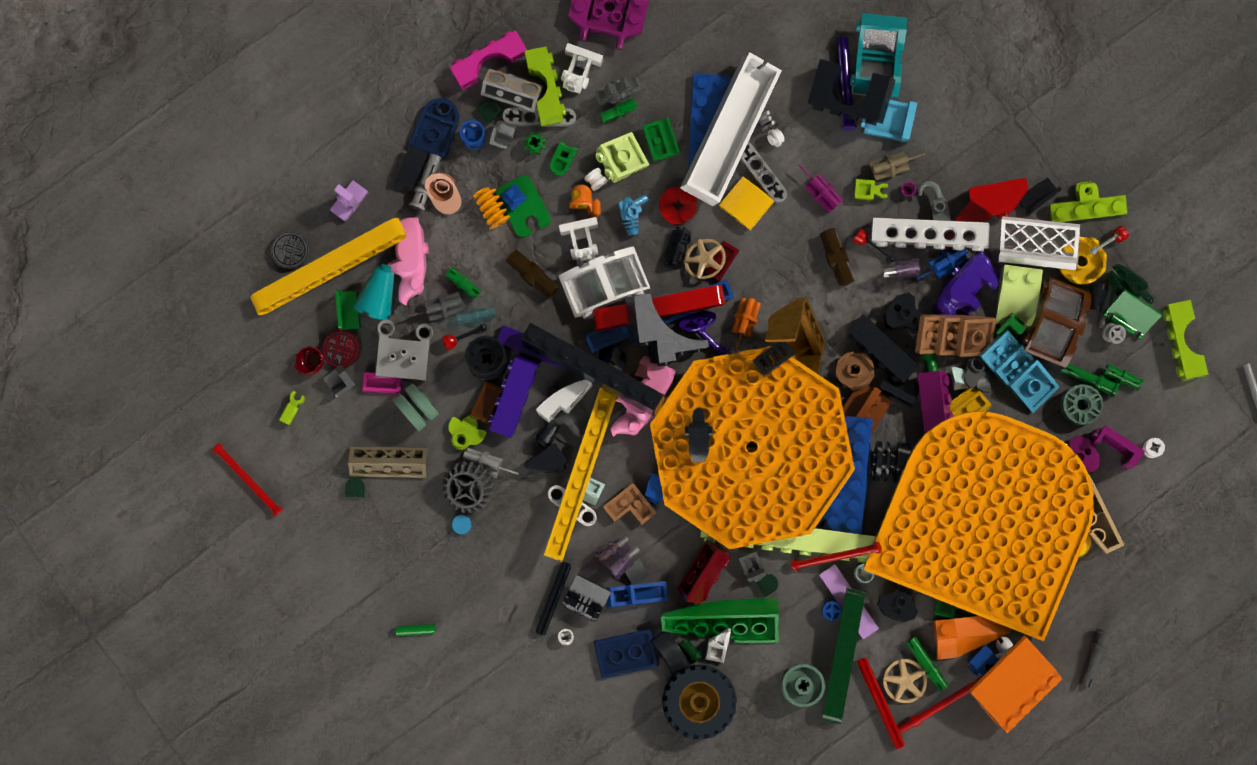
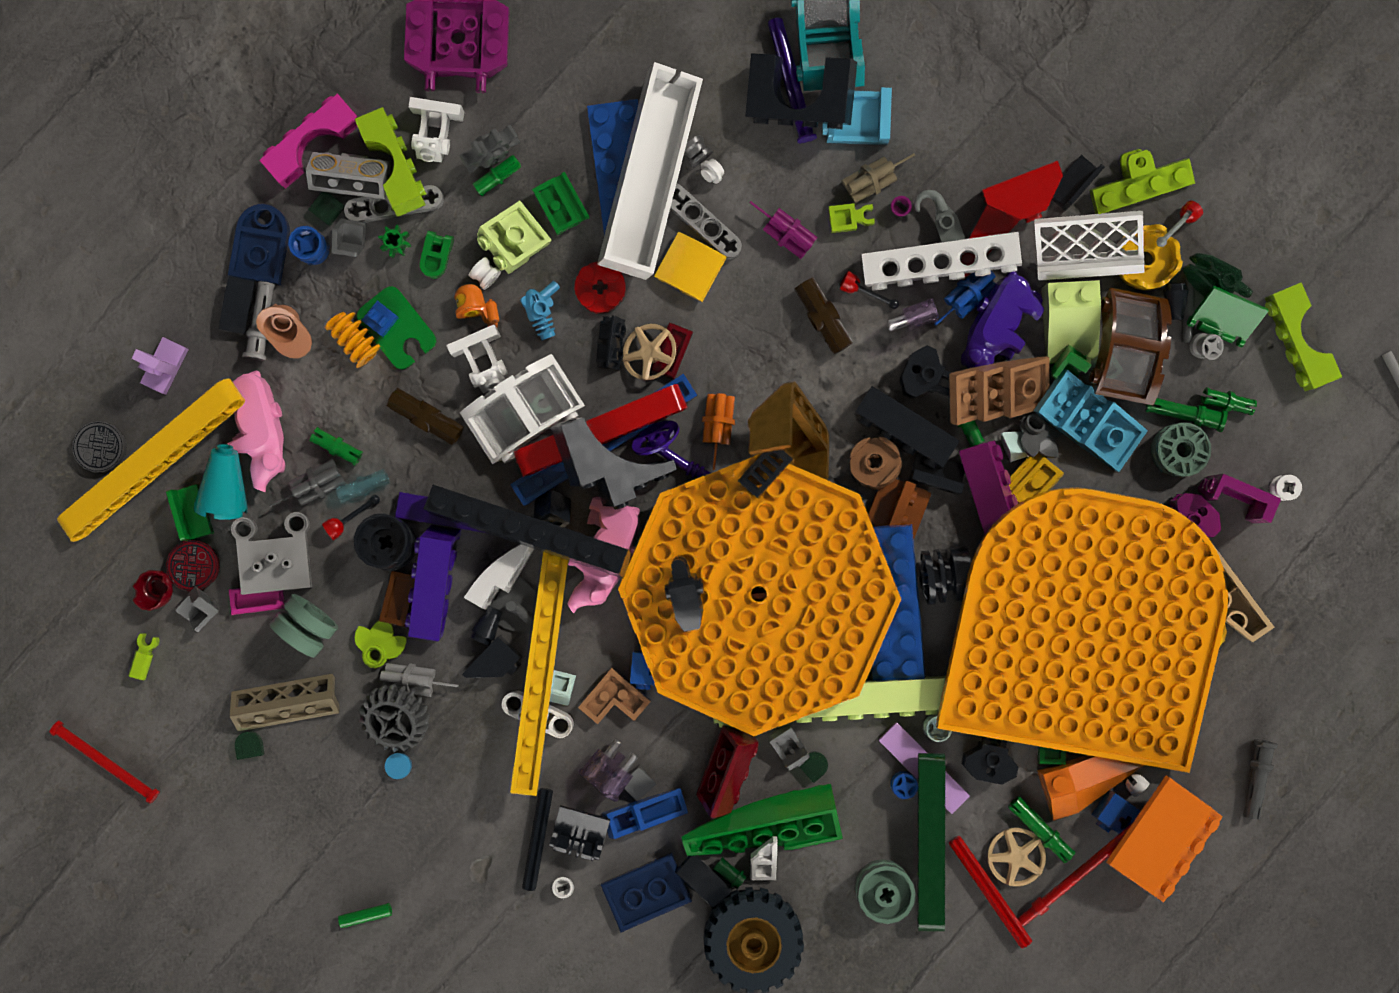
camera: 10 degrees left, 5 degrees up
(876, 548) = (948, 698): red bar -> none

